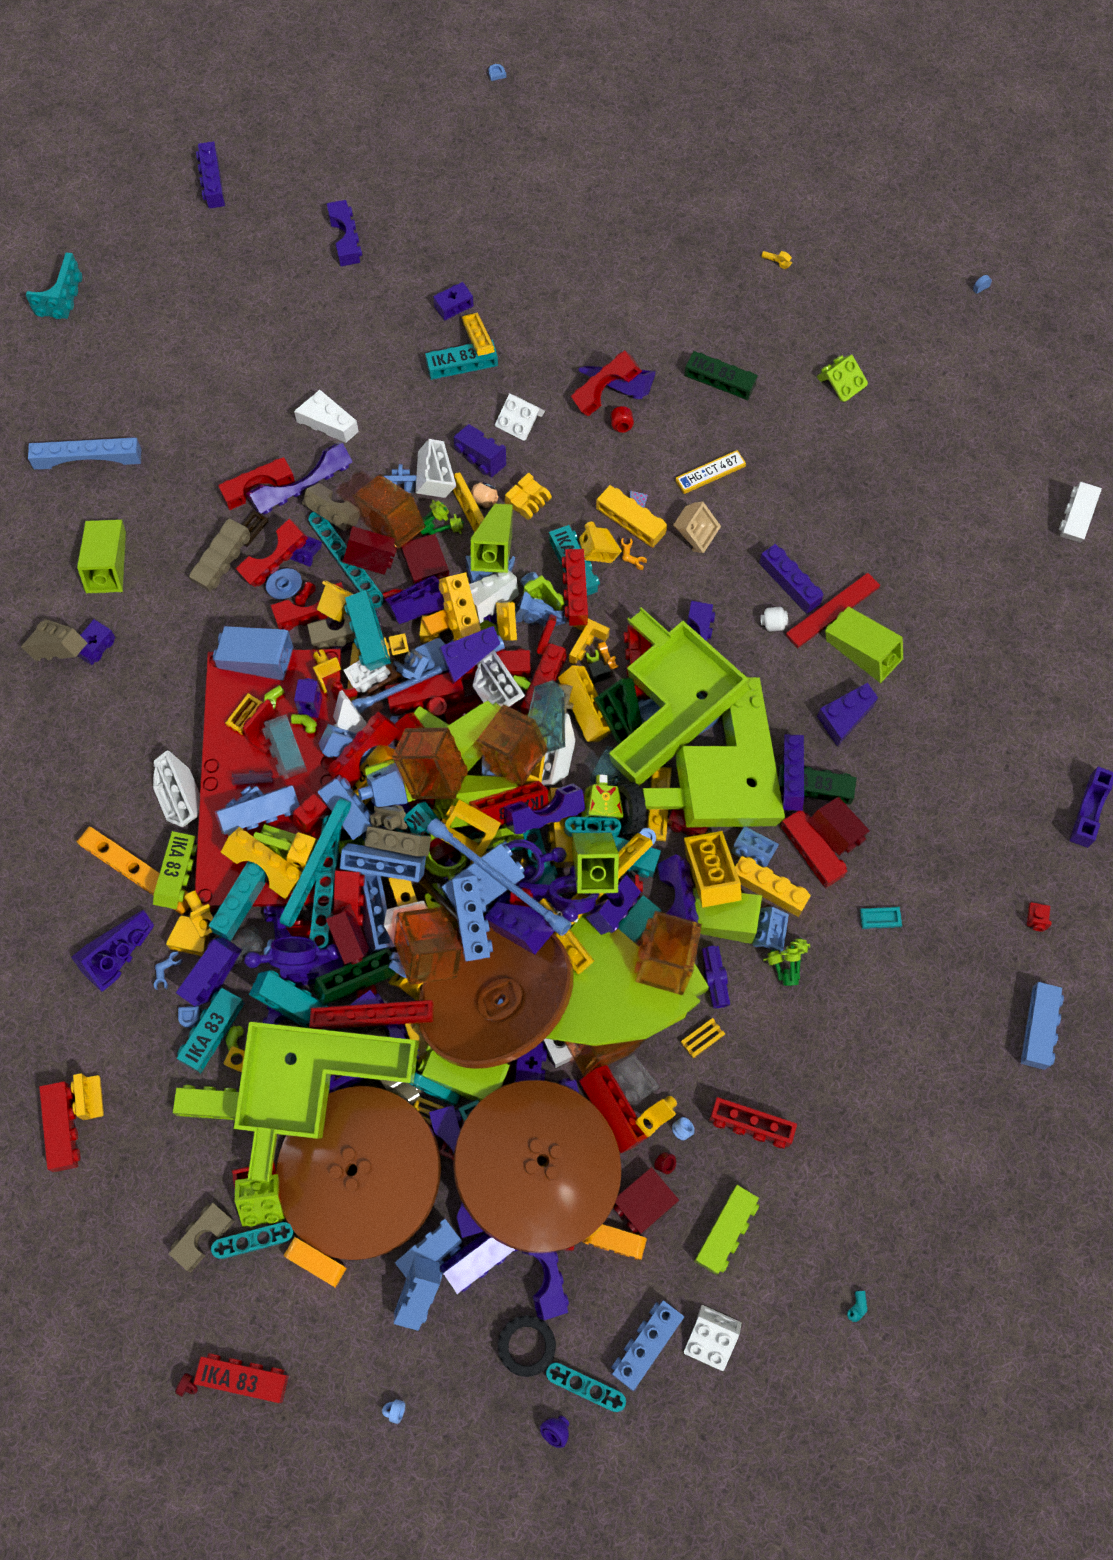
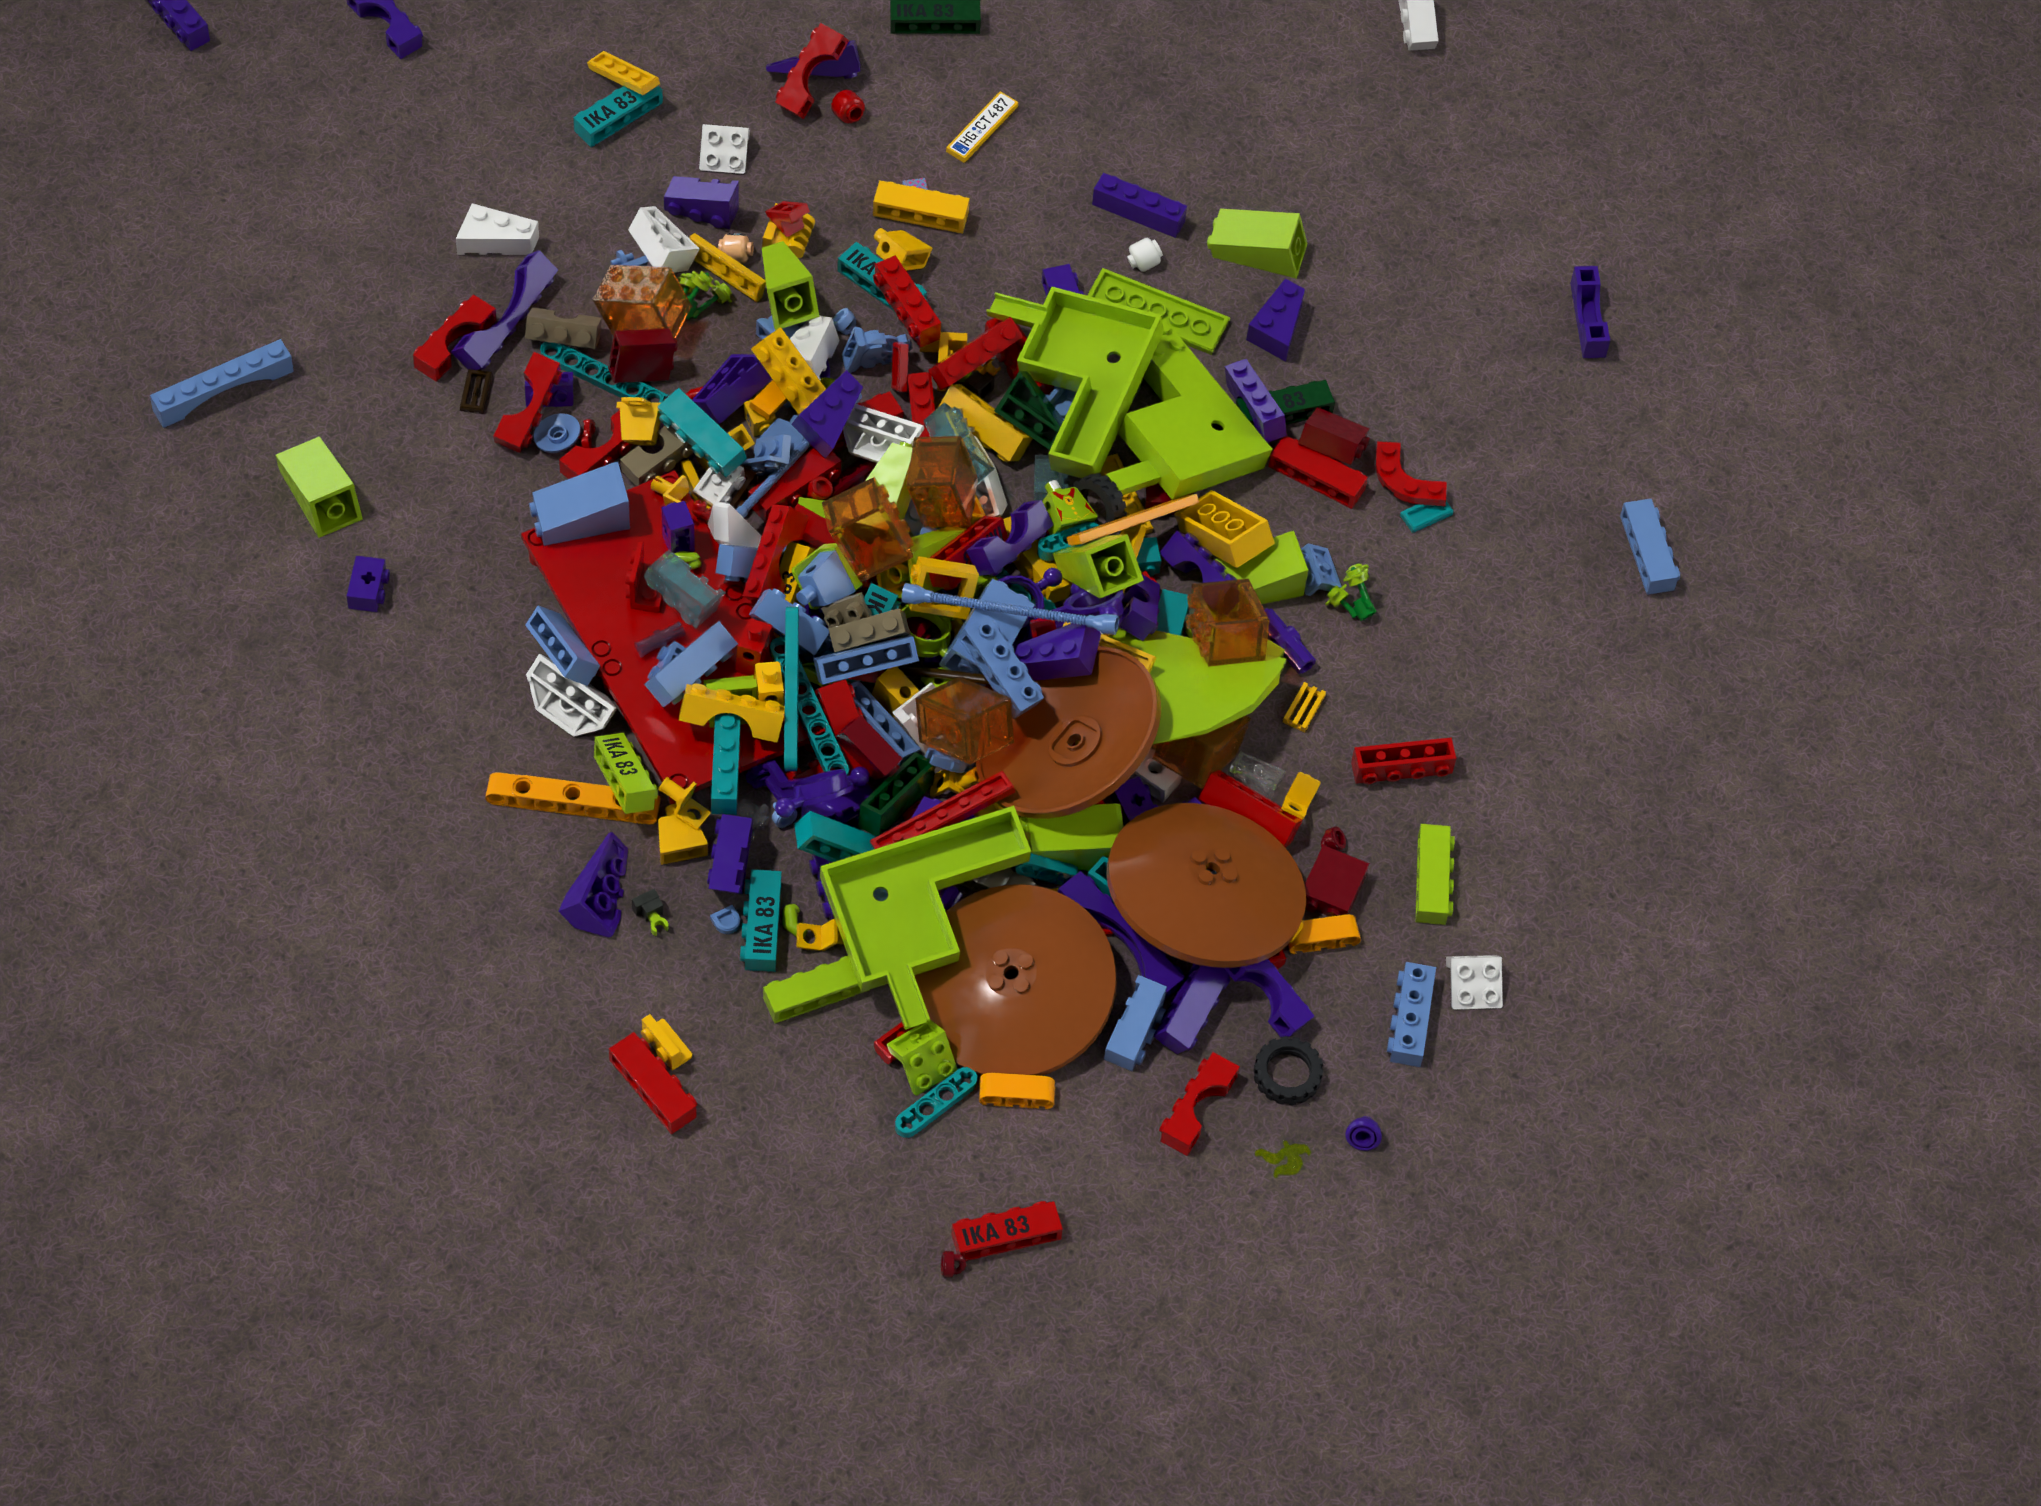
camera: 30 degrees left, 10 degrees down
(52, 641) = (325, 593): dark tan wedge -> none
(59, 299) = (74, 226): teal bracket -> none
(139, 981) = (651, 908): none -> pearl dark grey piece
(160, 967) = (663, 886): medium blue arm -> none
(186, 1250) = (883, 1100): dark tan arch -> none
(187, 751) = (562, 645): none -> medium blue brick
(219, 555) = (461, 431): dark tan brick -> none
(239, 709) = (605, 595): yellow tile -> none
(273, 695) = (627, 547): lime arm -> none
(396, 1412) = (1186, 1188): light blue tile -> none
(417, 1293) = (1149, 1061): medium blue wedge -> none
(418, 1357) = (1214, 1079): none -> red arch
(424, 559) = (708, 343): dark red brick -> none
(453, 301) = (567, 47): dark purple brick -> none
(492, 1424) = (1294, 1161): none -> clear neon green piece
(506, 620) = (845, 359): yellow bracket -> none
(529, 487) = (788, 216): none -> red slope
(543, 590) = (872, 318): lime bracket -> none
(587, 1383) = (1370, 1078): teal beam -> none
(603, 648) = (975, 353): none -> red brick
(631, 559) = (940, 254): light orange arm -> none
(644, 833) = (1132, 520): none -> light orange tile
(683, 1128) = (1335, 798): light blue tile -> none
(697, 526) = (1003, 187): tan brick -> none
(754, 846) = (1256, 496): medium blue bracket -> none
(758, 661) = (1193, 323): none -> lime tile
(771, 887) = (1309, 526): yellow brick -> none
(829, 612) = (1202, 222): red tile -> none
(860, 1308) = (1608, 889): teal arm -> none
(871, 885) = (1402, 485): none -> red plate
(1038, 917) = (1591, 445): red bracket -> none

